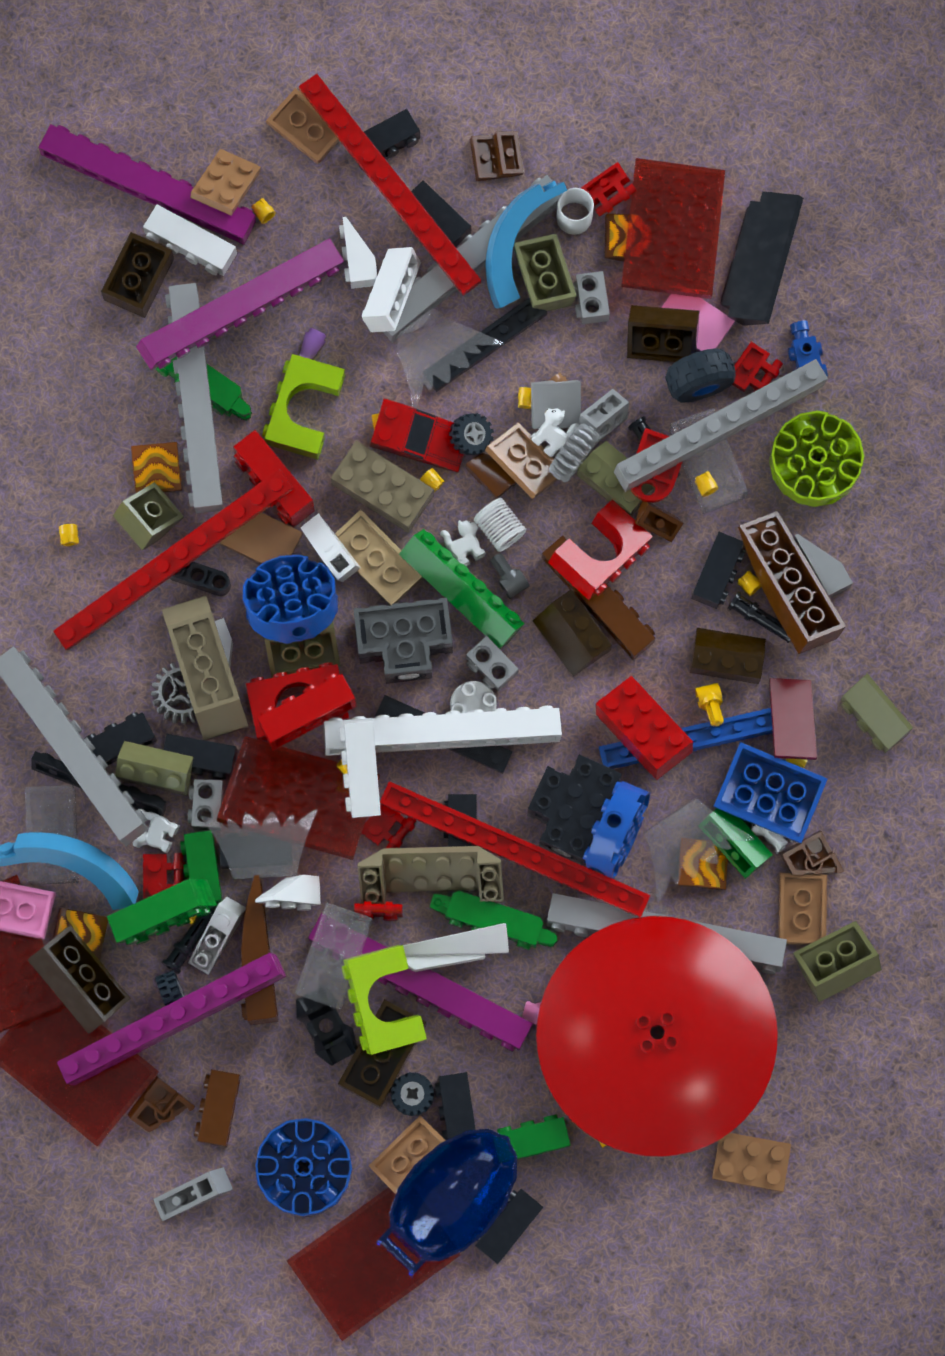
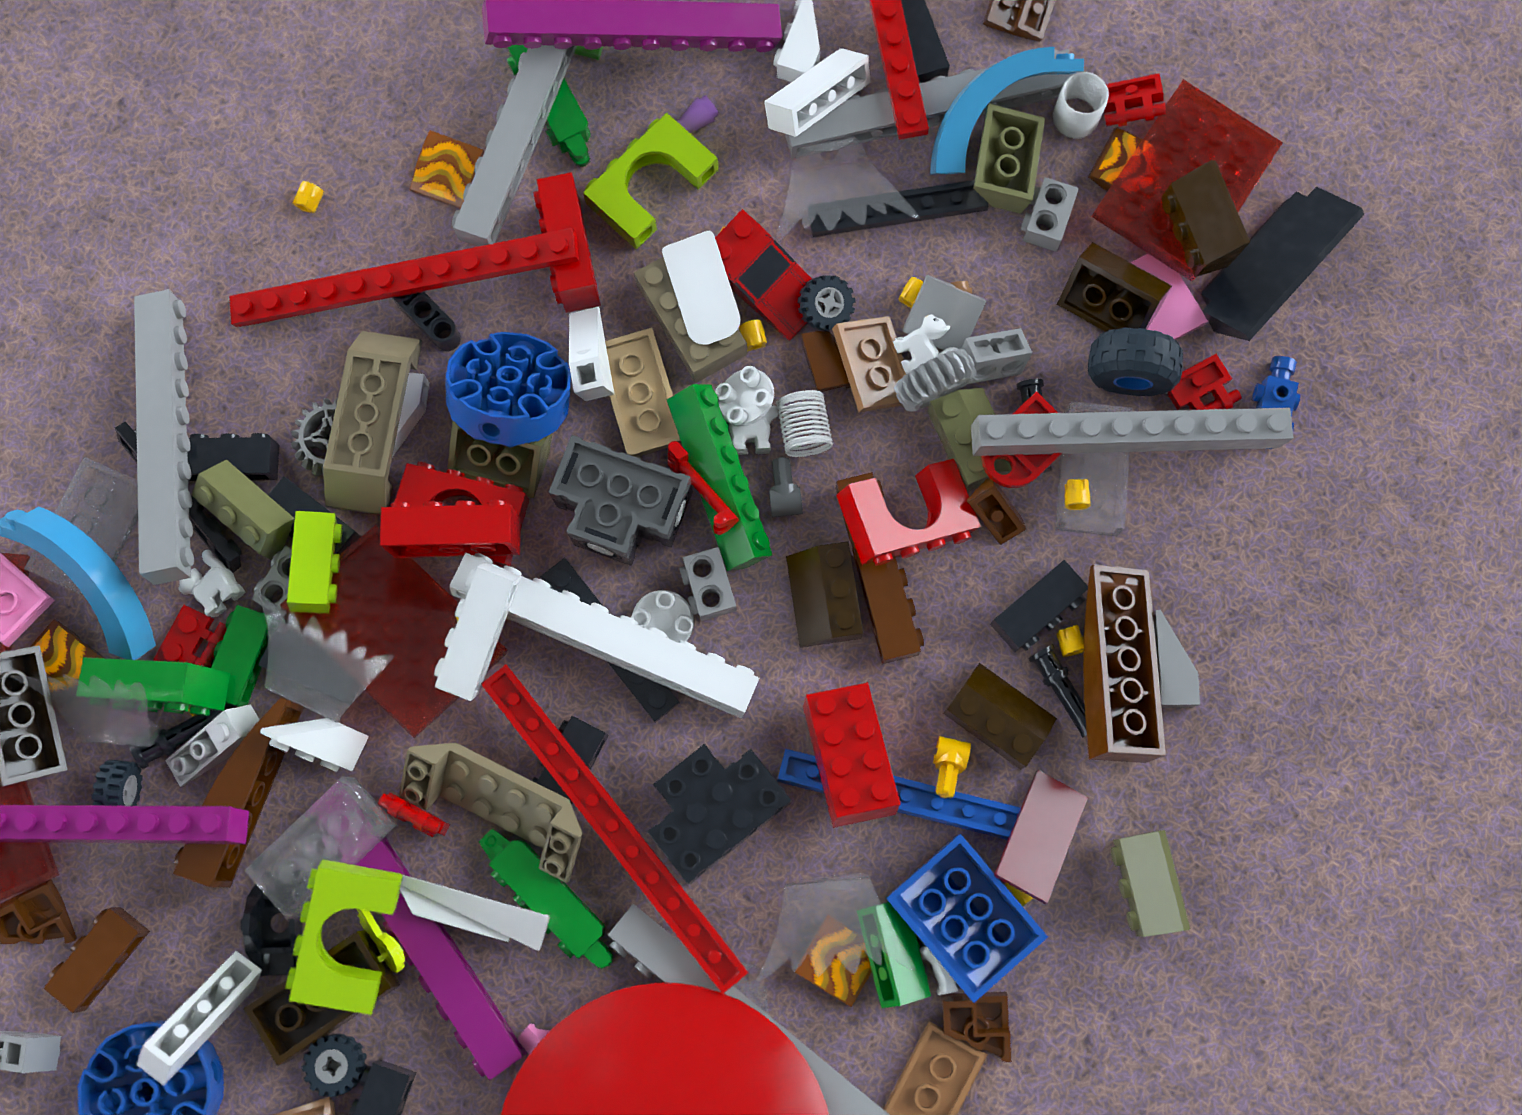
camera: 30 degrees right, 0 degrees up
(140, 945) = (100, 712): none -> clear piece
(147, 515) = (405, 217): olive slope -> none
(225, 778) = (313, 562): none -> lime brick
(263, 539) = (522, 305): medium nougat tile -> none
(315, 1100) = (198, 1018): none -> white brick
(378, 827) = (472, 714): red plate -> none
(385, 466) = (702, 288): none -> white sticker
(408, 1001) = (387, 945): none -> neon yellow piece
(428, 591) = (678, 464): none -> red hinge
(451, 526) = (745, 396): none -> white dish
(617, 829) = (748, 867): blue brick -> none
(699, 256) = (1205, 219): none -> dark brown slope
(825, 438) = (1254, 513): lime brick -> none

